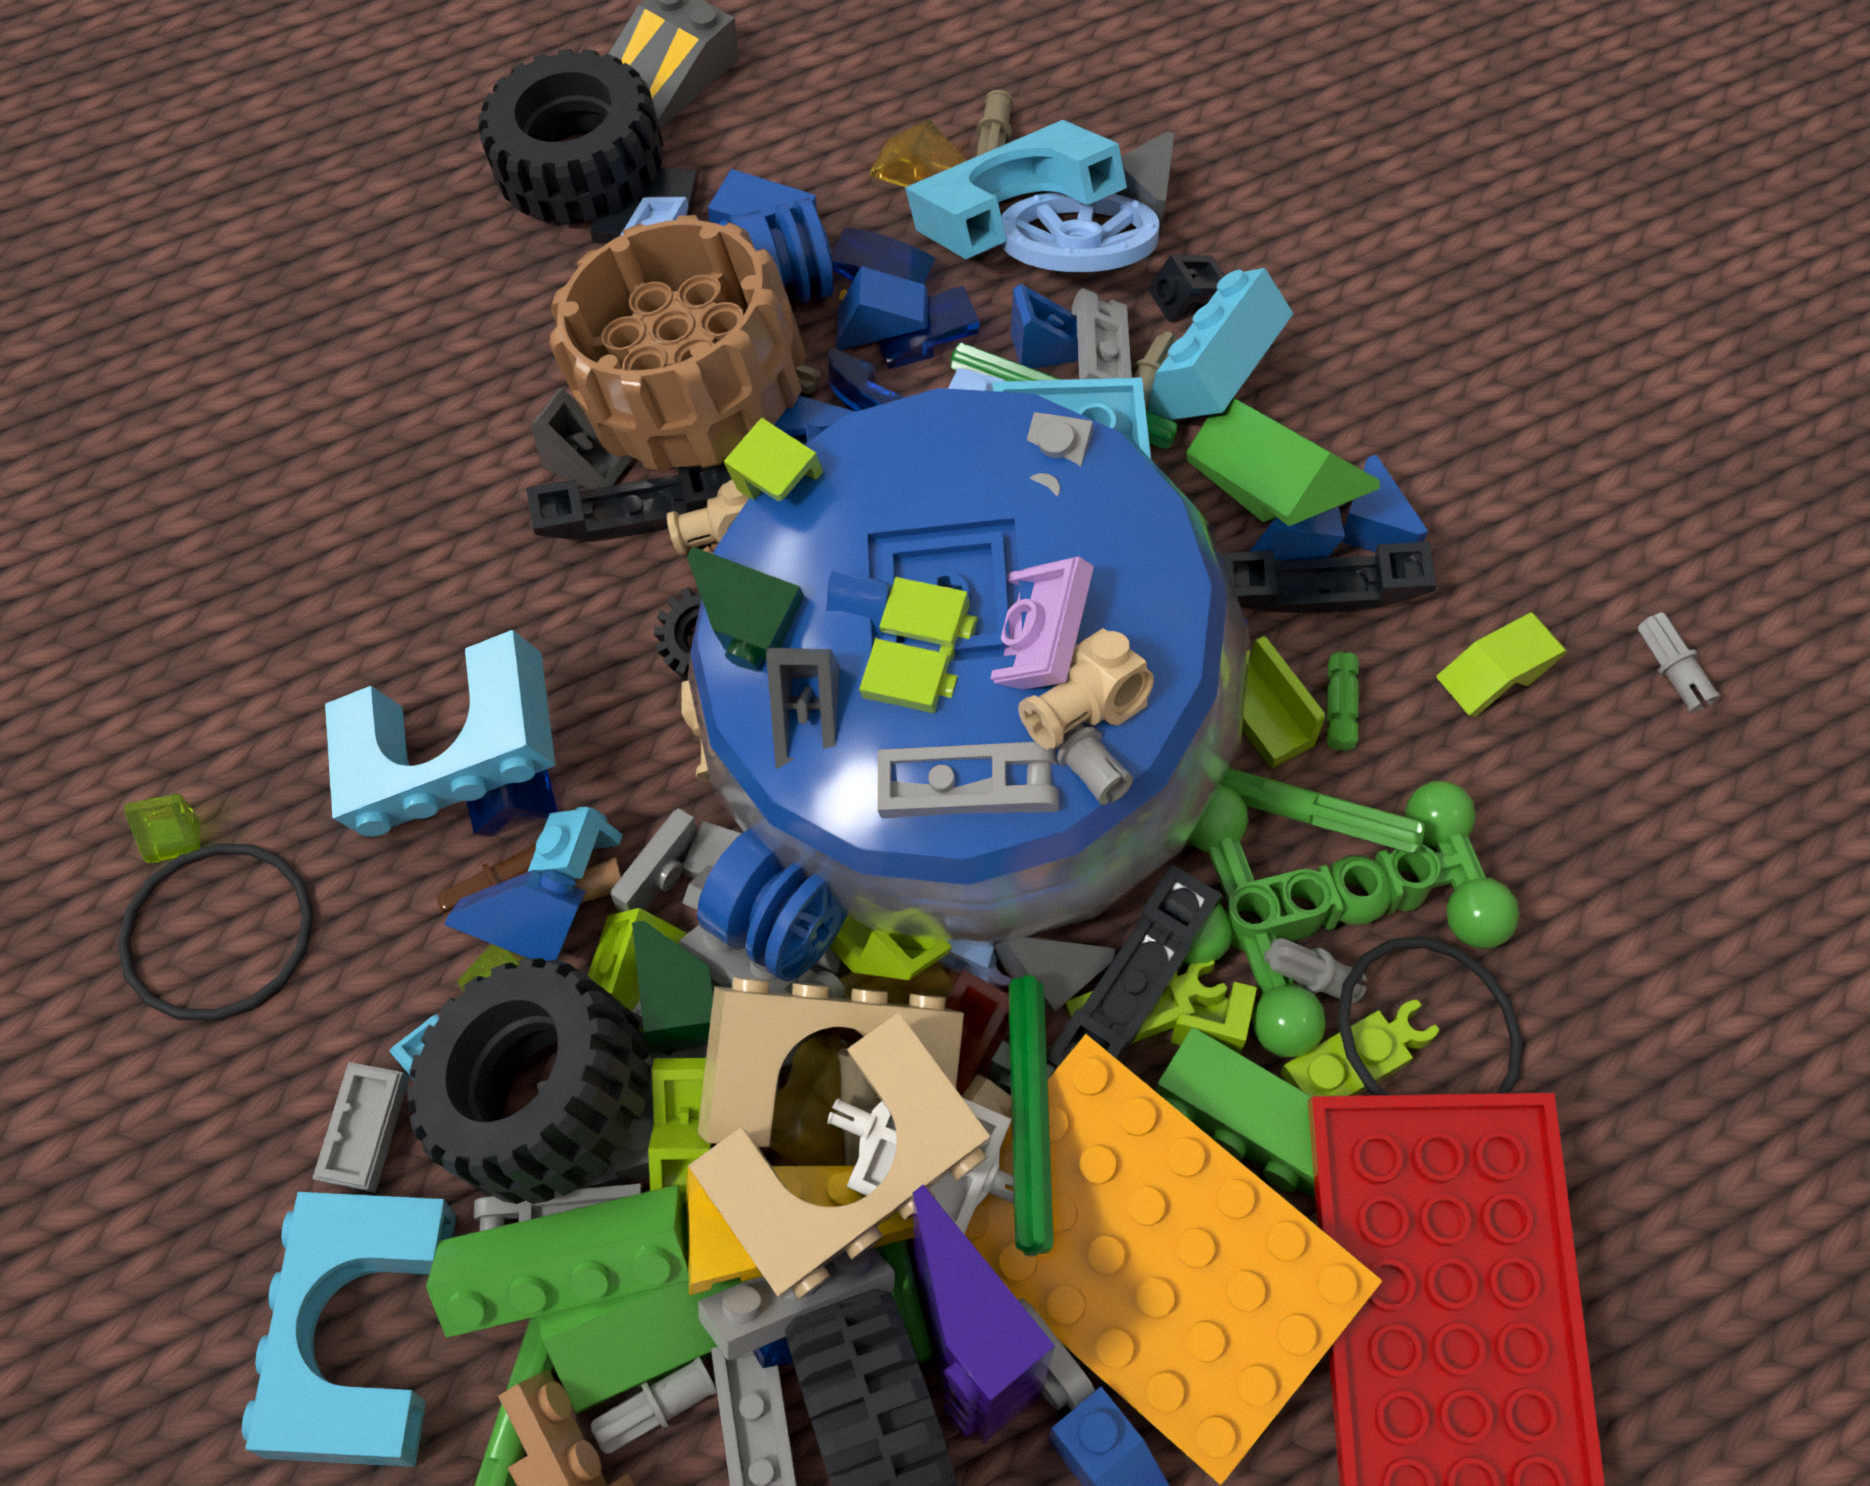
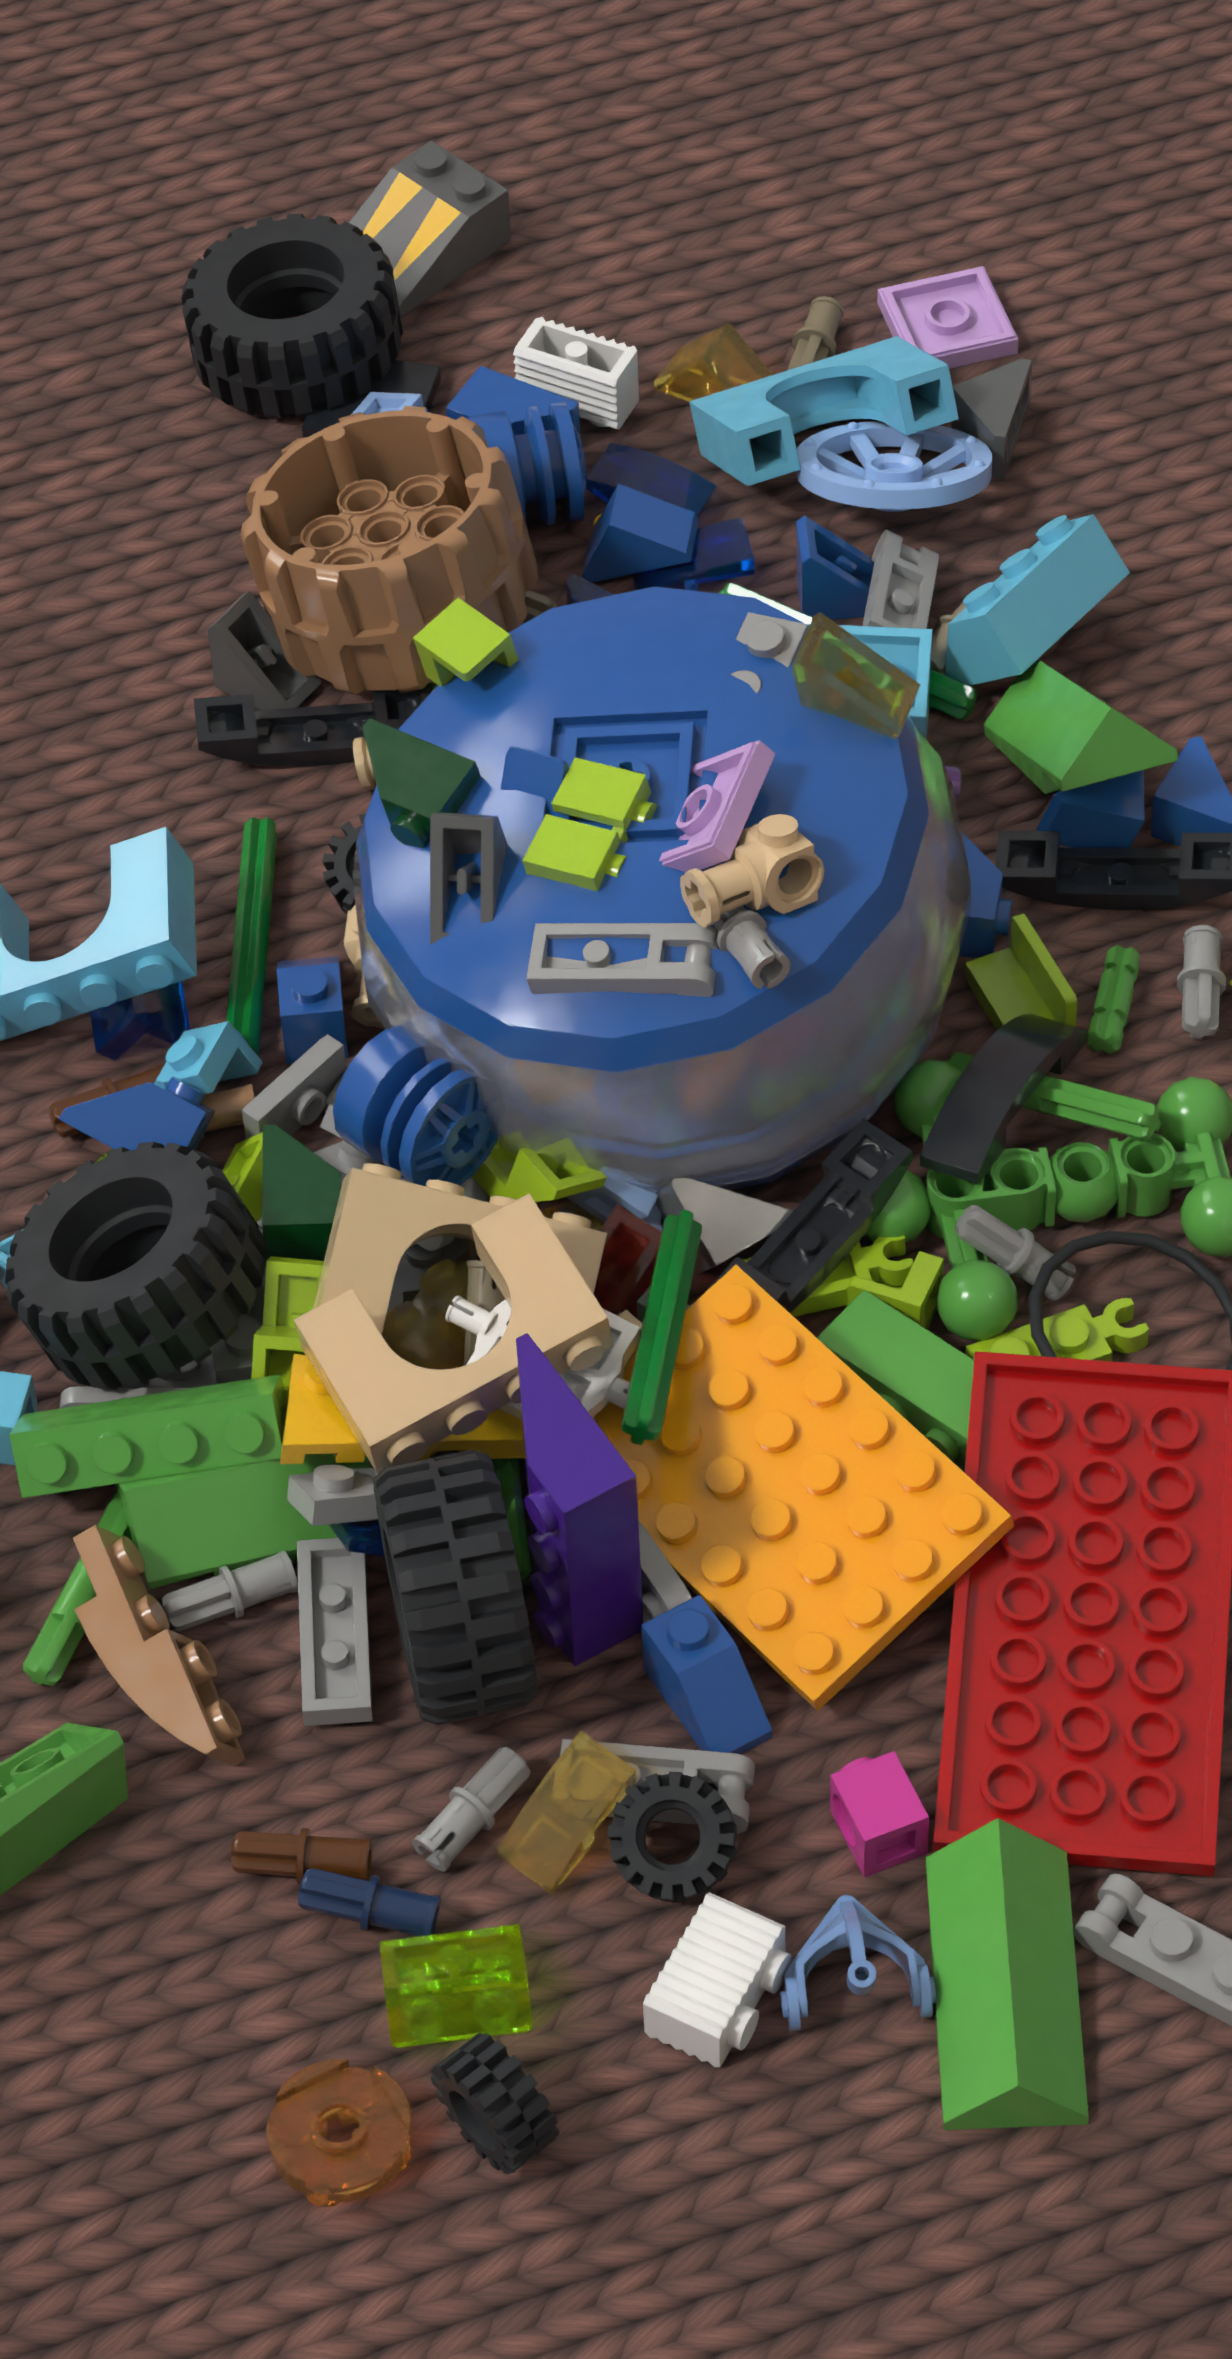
camera: 10 degrees right, 10 degrees down
(599, 706) = (252, 929): none -> green axle
(658, 770) = (310, 1004): none -> blue slope
(812, 166) = (581, 369): none -> white brick
(1096, 99) = (950, 317): none -> lavender tile
(1148, 478) = (851, 680): none -> clear yellow slope
(1185, 281) = (1009, 530): black bracket -> none
(1276, 818) = (993, 1089): none -> black slope
(1413, 678) = (1201, 981): none -> light grey axle

